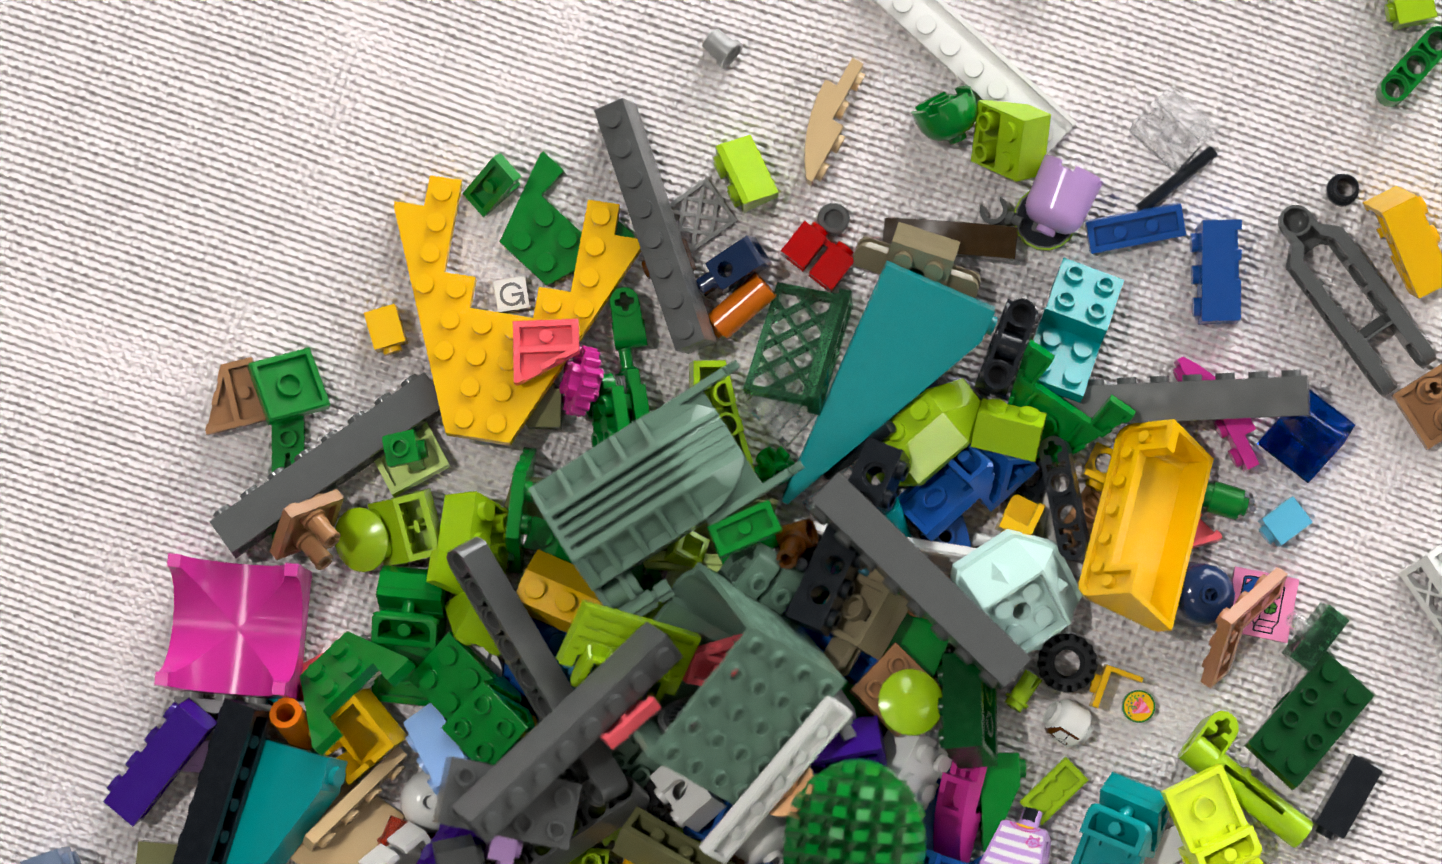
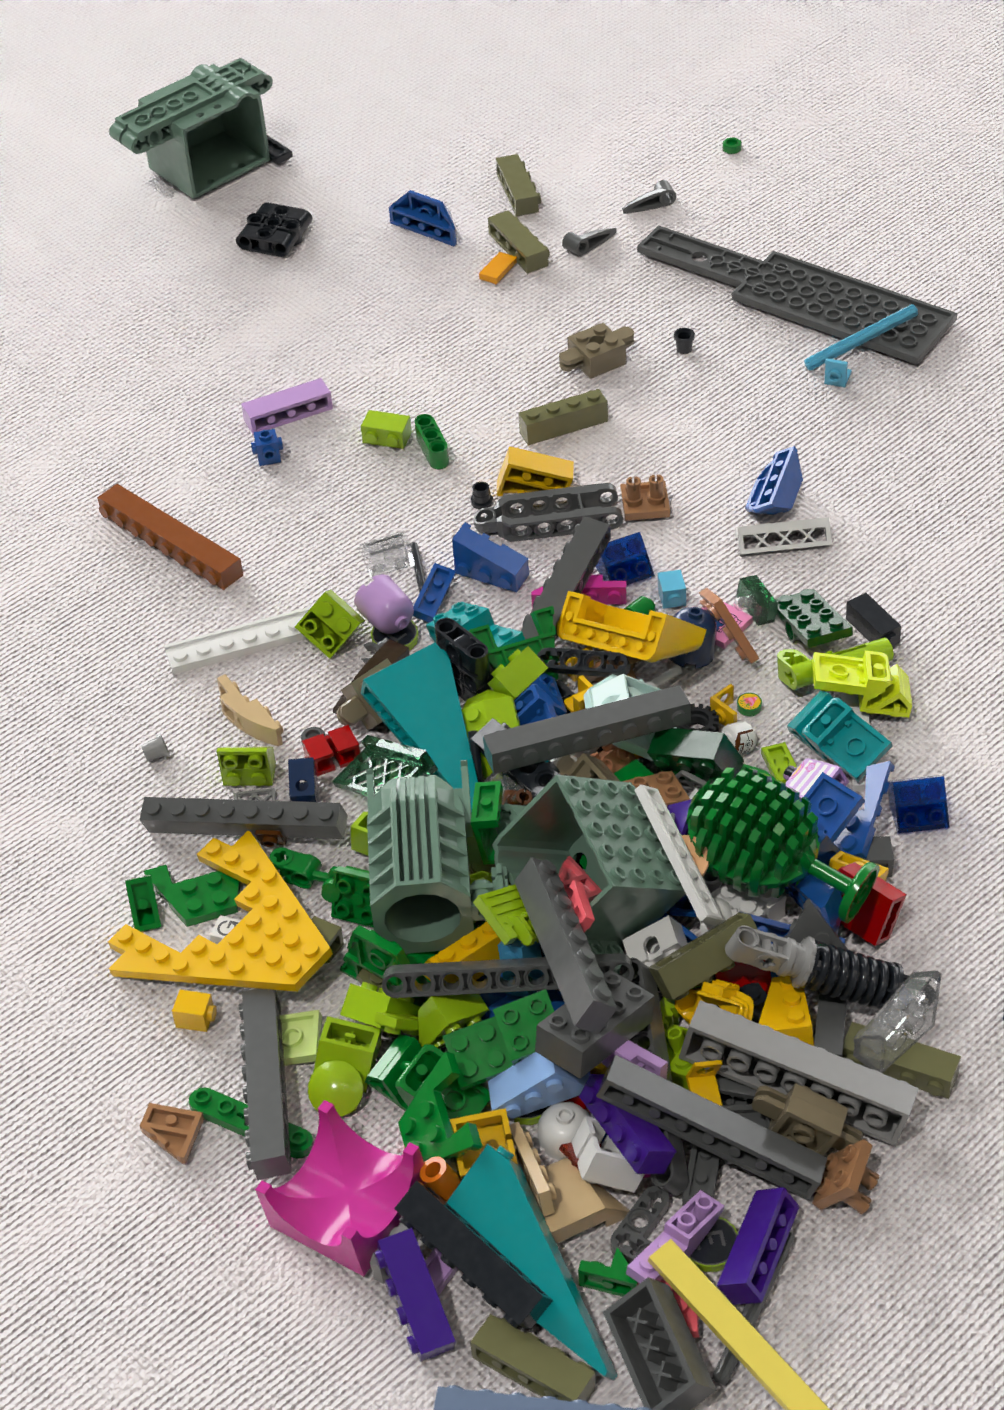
camera: 65 degrees left, 40 degrees down
(288, 386) = (188, 1086): green tile -> none
(309, 529) = (295, 1099): medium nougat plate -> none
(405, 449) = (290, 1019): green bracket -> none
(542, 346) = (276, 897): coral wing -> none
(581, 381) = (318, 894): dark pink gear -> none
(741, 306) = (332, 790): orange brick -> none
(909, 702) = (670, 779): lime dish -> none
(947, 115) = (292, 649): green cylinder -> none

